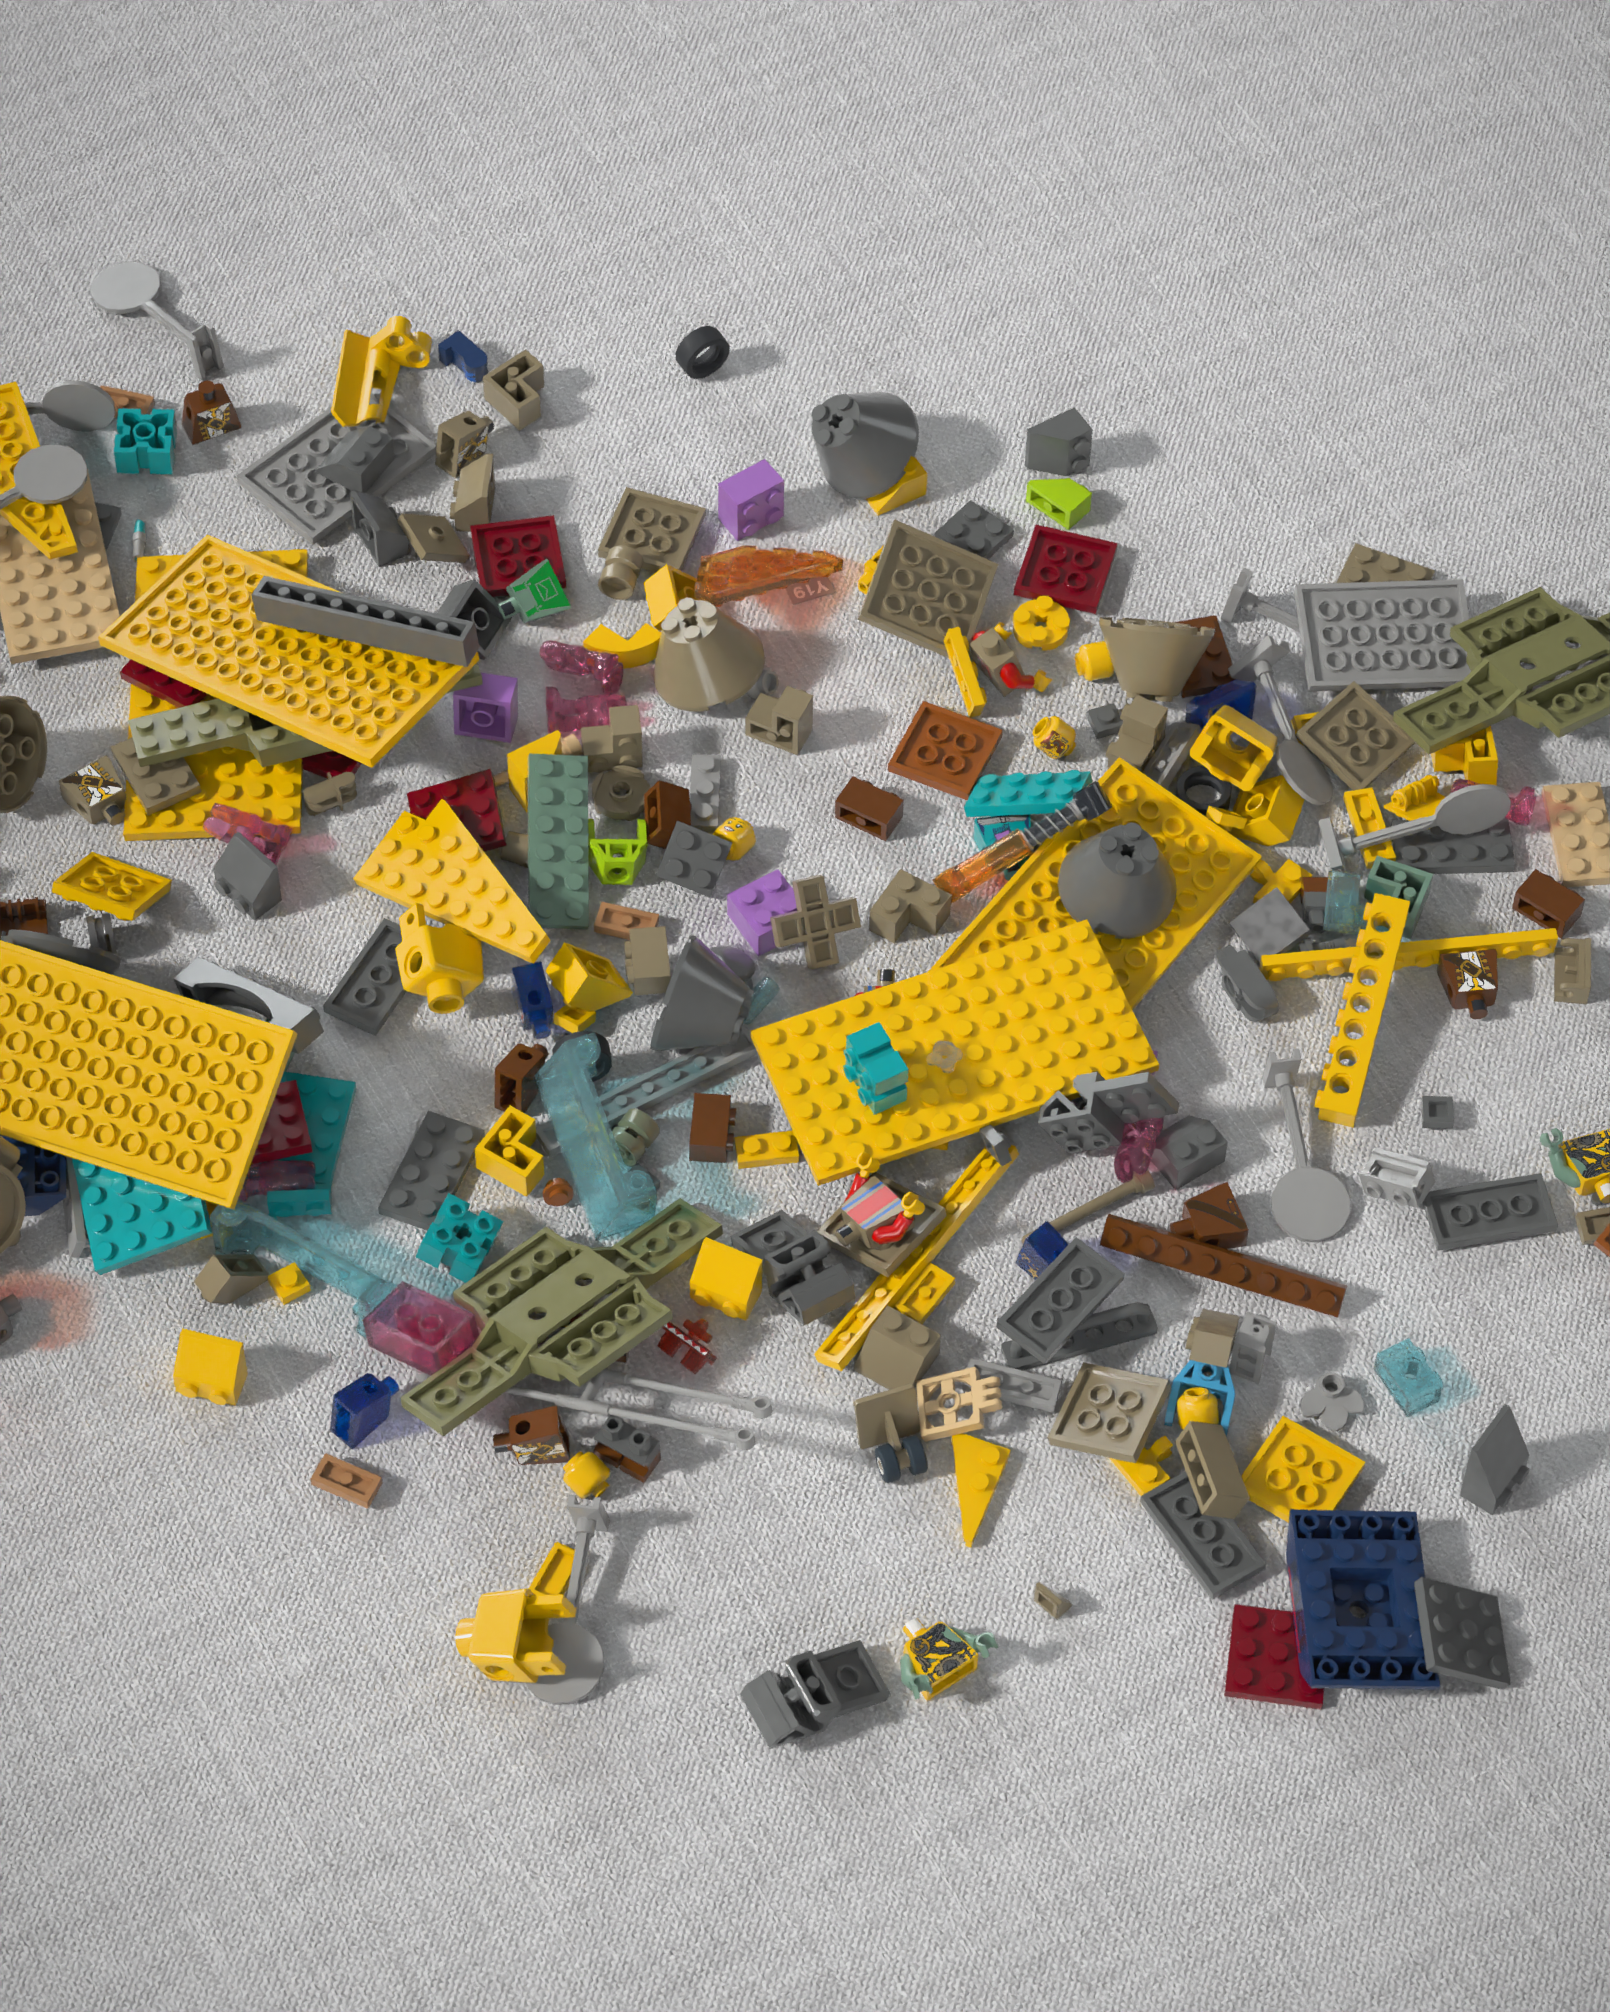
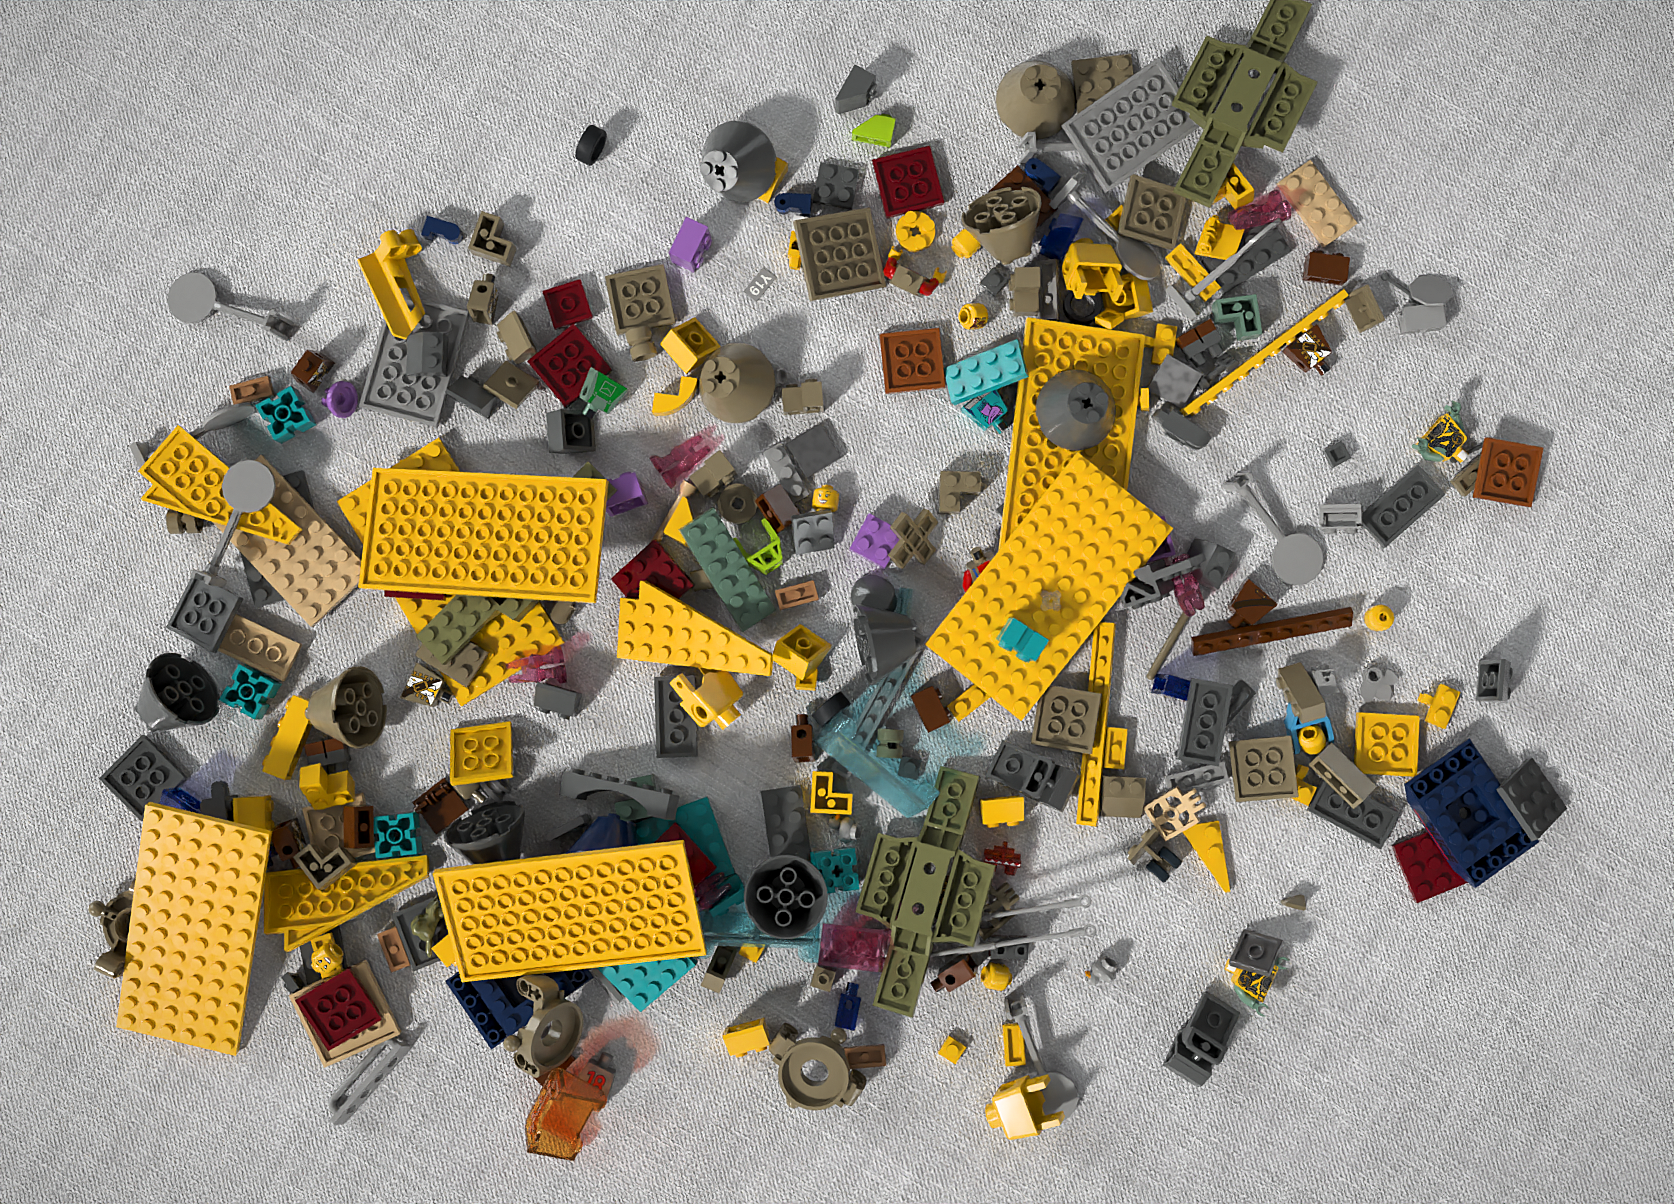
camera: 25 degrees left, 30 degrees up
(66, 919) = (470, 790): none -> dark tan piece
(138, 540) = (328, 486): light grey piece -> none
(222, 457) = (341, 399): none -> medium lavender hair
(288, 1469) = (838, 1088): none -> dark tan piece
(358, 1355) = (823, 977): none -> dark tan brick
(365, 621) = (524, 499): dark grey brick -> none
(377, 1208) = (780, 915): none -> dark grey cone
(467, 1537) = (951, 1049): none -> yellow plate
(508, 1204) = (847, 828): none -> light grey animal
(532, 999) = (772, 684): clear blue torso -> none
(558, 1192) = (868, 802): dark orange plate -> none
(561, 495) = (567, 304): none -> dark red plate
(582, 661) = (677, 423): clear pink piece -> none
(647, 960) = (833, 625): dark tan brick -> none
(659, 1398) = (1002, 899): none -> dark tan piece
(736, 1540) = (1103, 969): none -> light grey animal
(750, 572) = (724, 298): clear orange plate -> none
(755, 786) = (813, 451): none -> flat silver tile
(869, 808) = (892, 430): reddish brown brick -> none
(874, 1211) = (1064, 722): torso -> none
(907, 516) = (793, 202): none -> dark blue leg
(957, 1617) = (1256, 953): none -> flat silver tile
(965, 672) = (894, 299): yellow plate -> none
(996, 1144) = (1106, 631): dark grey plate -> none
(1018, 845) = (977, 455): piece -> none
(1217, 929) = (1143, 399): none -> yellow plate
(1238, 634) = (1042, 174): none -> dark blue leg
(1284, 550) = (1035, 99): none -> dark tan cone
(1342, 906) = (1218, 348): clear light blue plate -> none
(1343, 1107) = (1286, 481): yellow brick -> none
(1379, 1319) = (1377, 612): none -> yellow head
(1403, 1472) = (1440, 705): none -> yellow plate
(1409, 1393) = (1402, 640): clear light blue brick -> none

